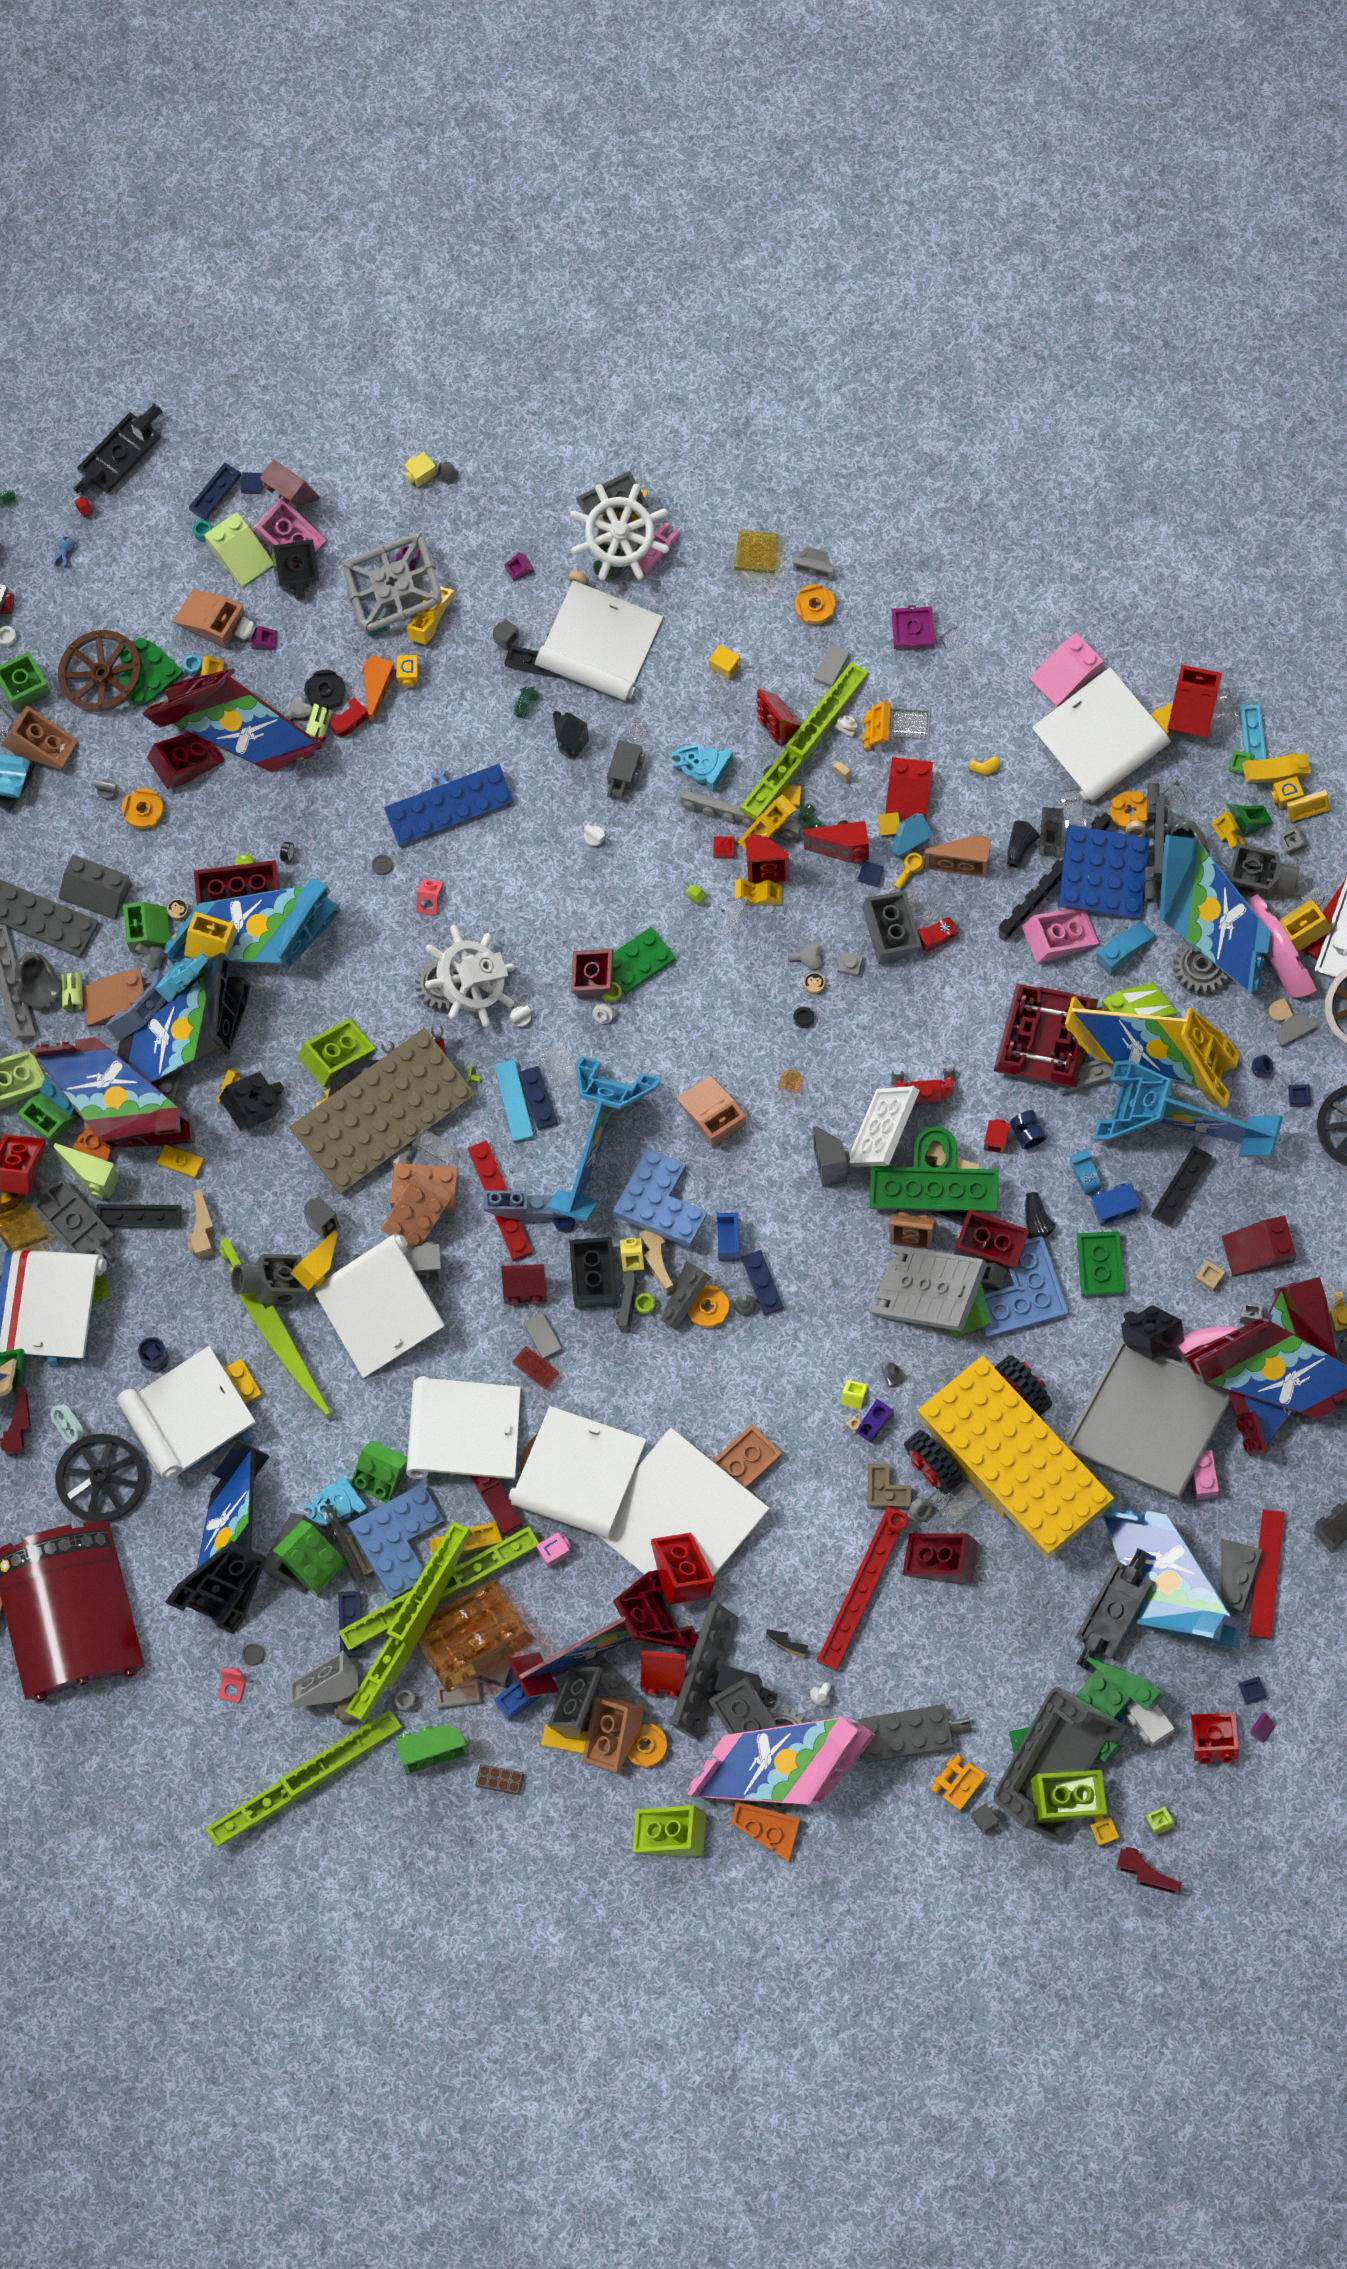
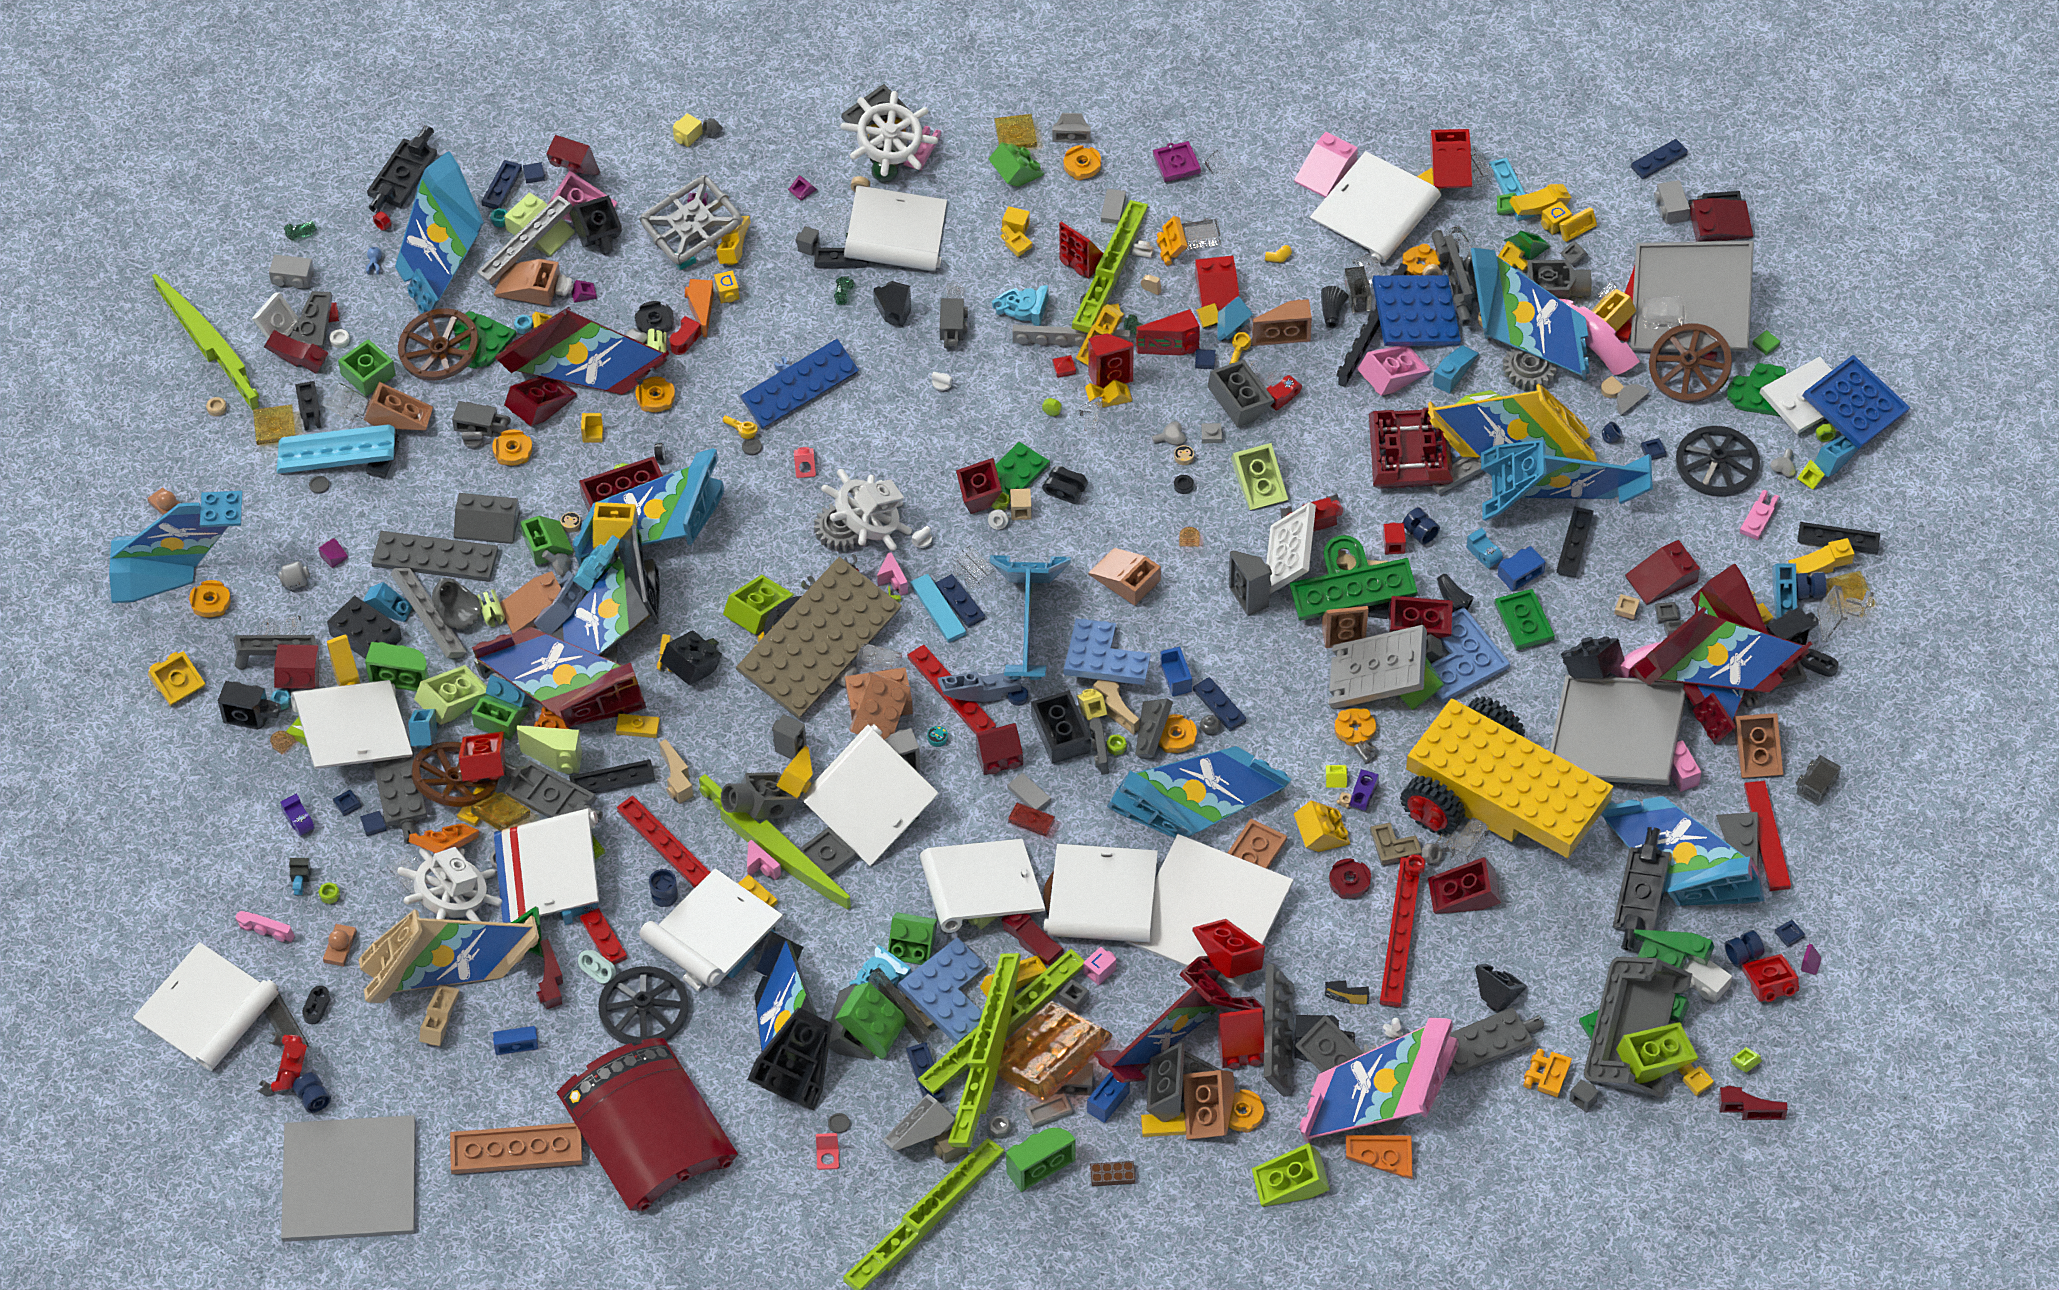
camera: 20 degrees left, 15 degrees down
(83, 1391) = (603, 936): none -> red plate
(121, 769) = (479, 418): none -> dark grey brick
(128, 545) = (438, 232): none -> piece
(169, 1300) = (663, 841): none -> red plate
(217, 568) = (524, 239): none -> light grey plate
(226, 806) = (592, 428): none -> yellow panel
(253, 1344) = (759, 859): none -> bright pink slope
(294, 772) = (659, 403): none -> light orange plate
(323, 1354) = (828, 851): none -> dark grey plate
(381, 844) = (746, 429): none -> yellow plate
(470, 1248) = (937, 736): none -> teal tile
(477, 1049) = (892, 573): none -> bright pink slope
(517, 1570) = (1073, 996): none -> dark grey plate
(630, 1001) = (1020, 504): none -> tan brick
(681, 978) = (1065, 484): none -> black brick
(705, 1384) = (1196, 791): none -> piece
(718, 687) = (1017, 243): none -> yellow plate
(744, 592) = (1015, 164): none -> bright green slope
(819, 1451) = (1321, 827): none -> yellow slope
(838, 1506) = (1349, 889): none -> dark red plate
(881, 1030) = (1259, 476): none -> yellowish green slope
(883, 1333) = (1355, 716): none -> light orange plate
(938, 1676) = (1497, 987): none -> black slope
(1198, 1698) = (1743, 948): none -> dark blue wheel
(1249, 1291) = (1666, 612): none -> dark grey tile
(1290, 1471) = (1758, 745): none -> nougat slope

